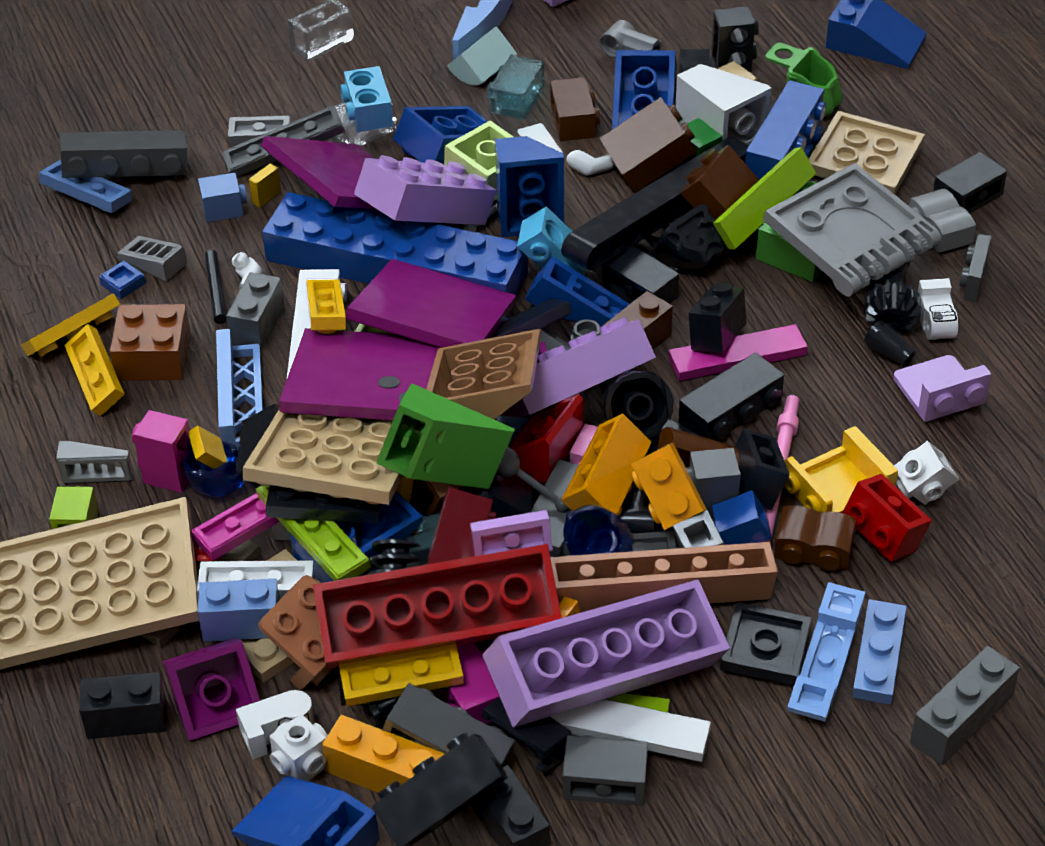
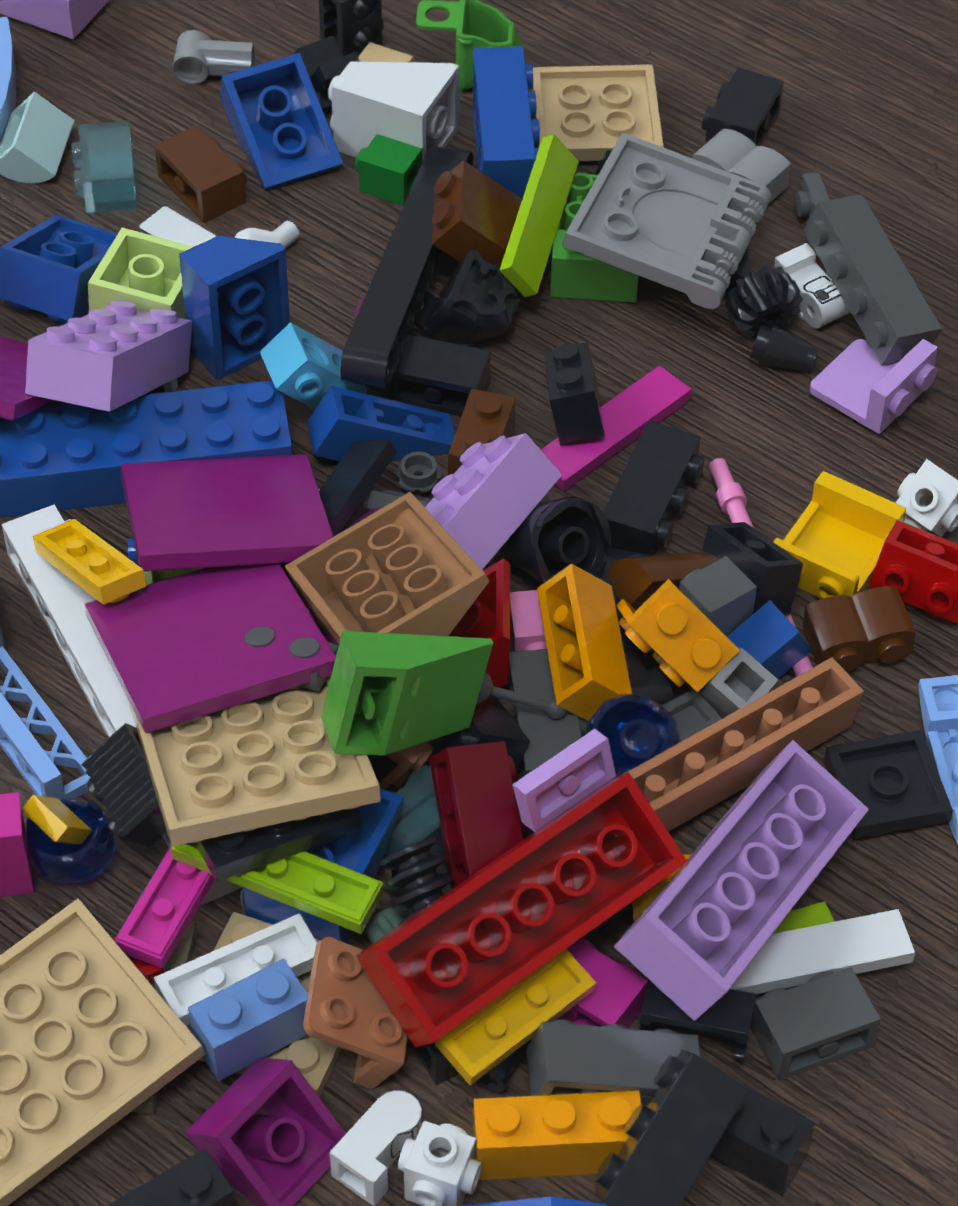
camera: 30 degrees left, 5 degrees up
(649, 144) = (339, 190): brick -> none
(976, 312) = (871, 277): none -> dark grey brick

